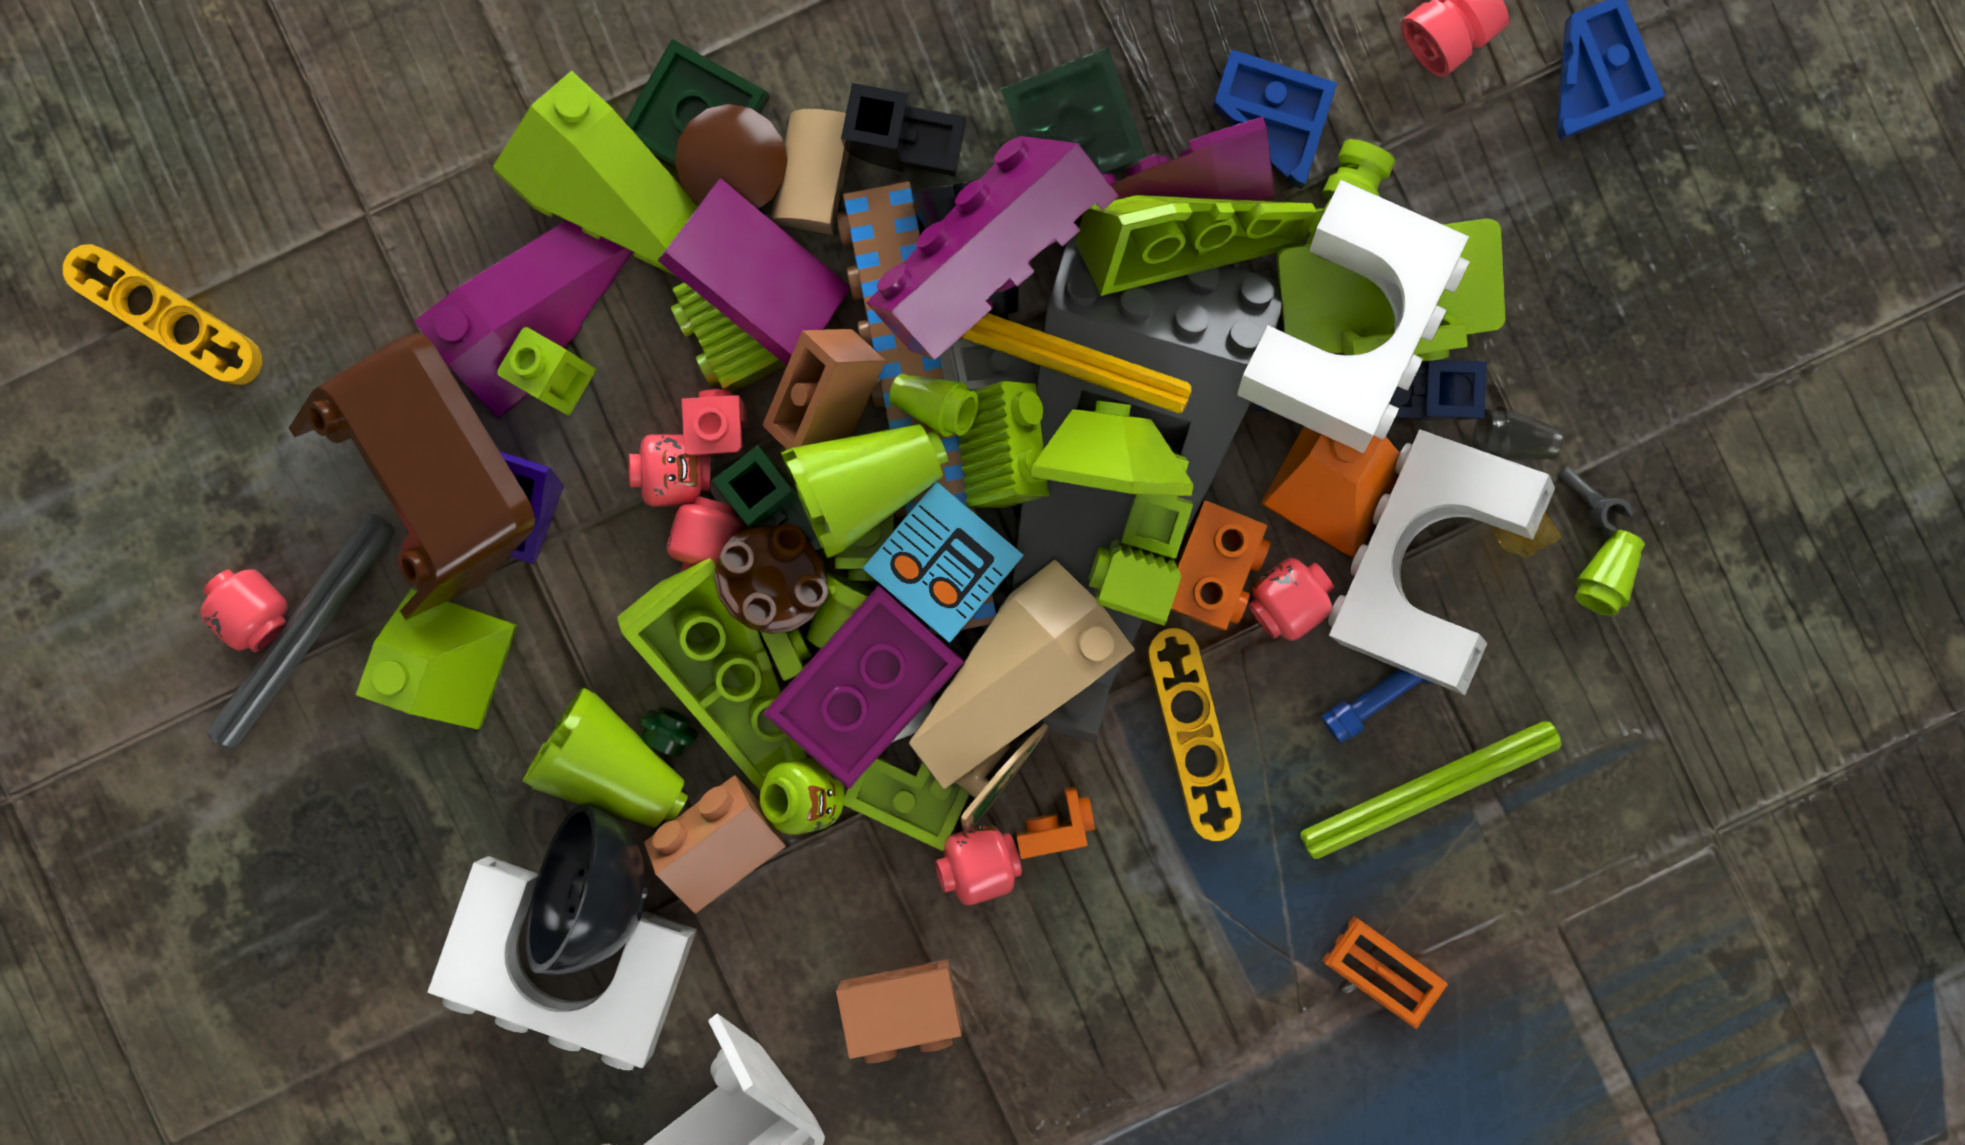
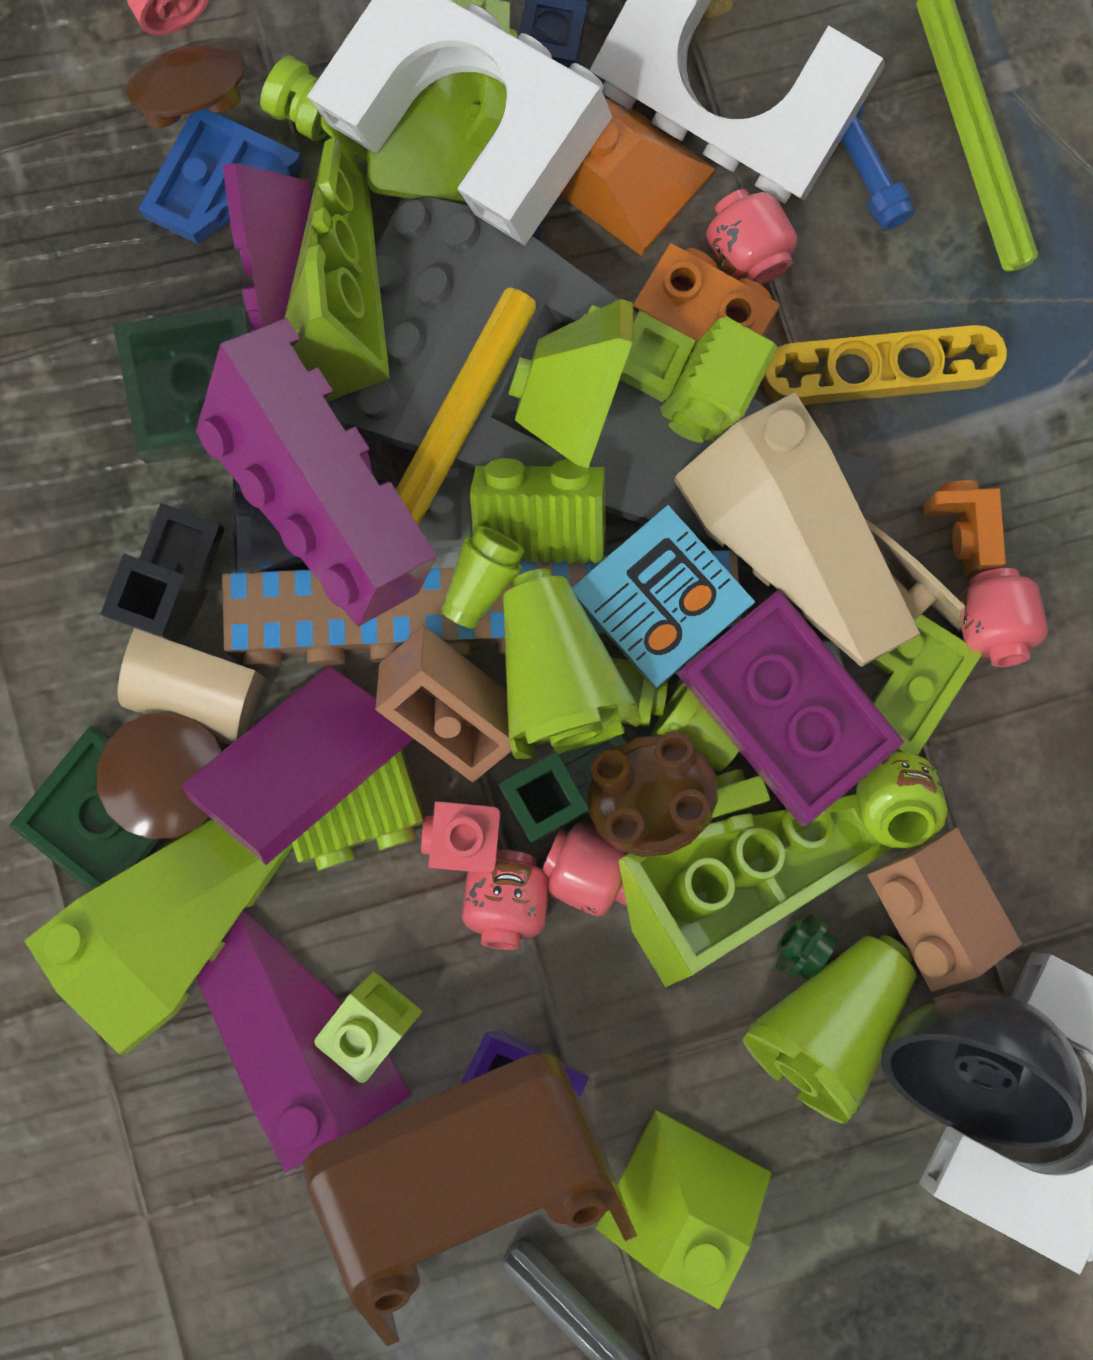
camera: 80 degrees left, 5 degrees down
(1355, 70) = (186, 83): none -> reddish brown dish

